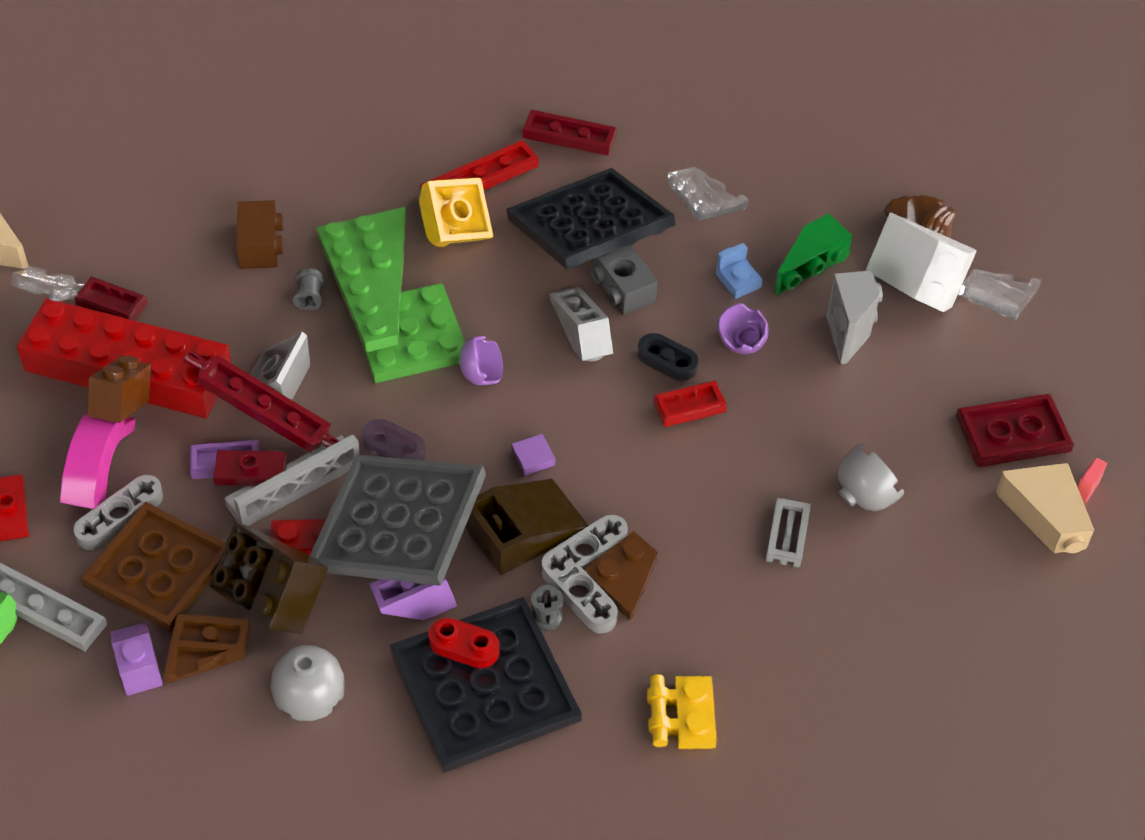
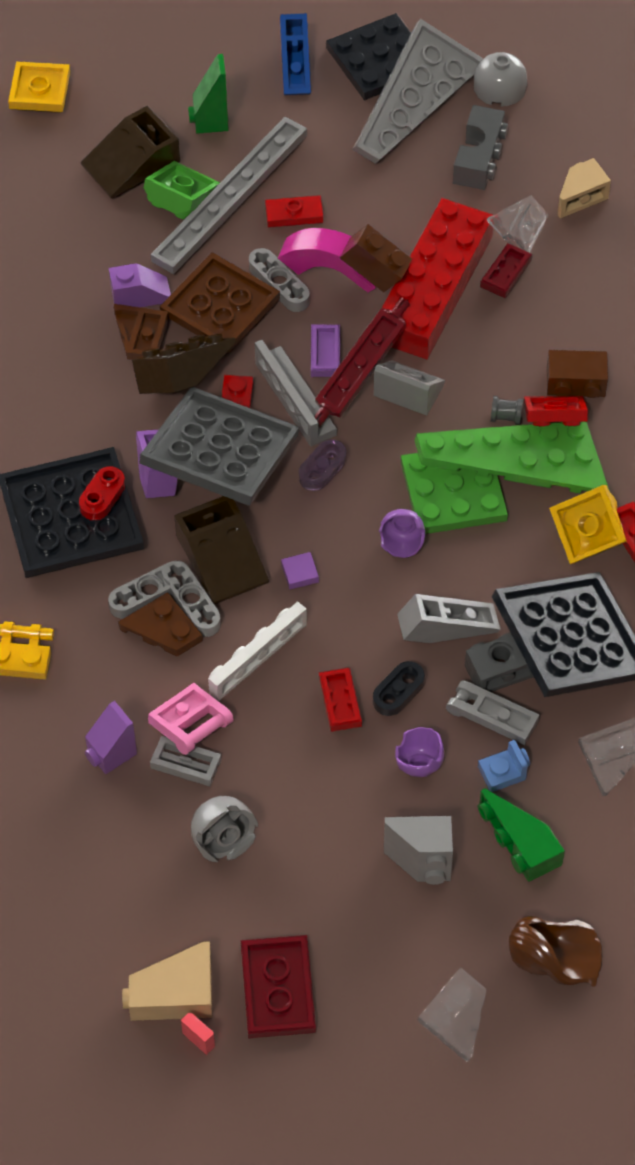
camera: 100 degrees right, 5 degrees up
(247, 467) = (304, 359): dark red plate -> none
(307, 683) = (94, 396): light grey cylinder -> none
(312, 241) = (547, 409): none -> red plate
(550, 607) = (131, 559): dark grey bush -> none
(648, 476) = (263, 646): none -> white plate
(679, 283) = (493, 712): none -> light grey plate
(742, 534) = (185, 710): none -> bright pink plate
(792, 588) = (111, 739): none -> medium lavender slope
(921, 262) = (480, 931): white slope -> none

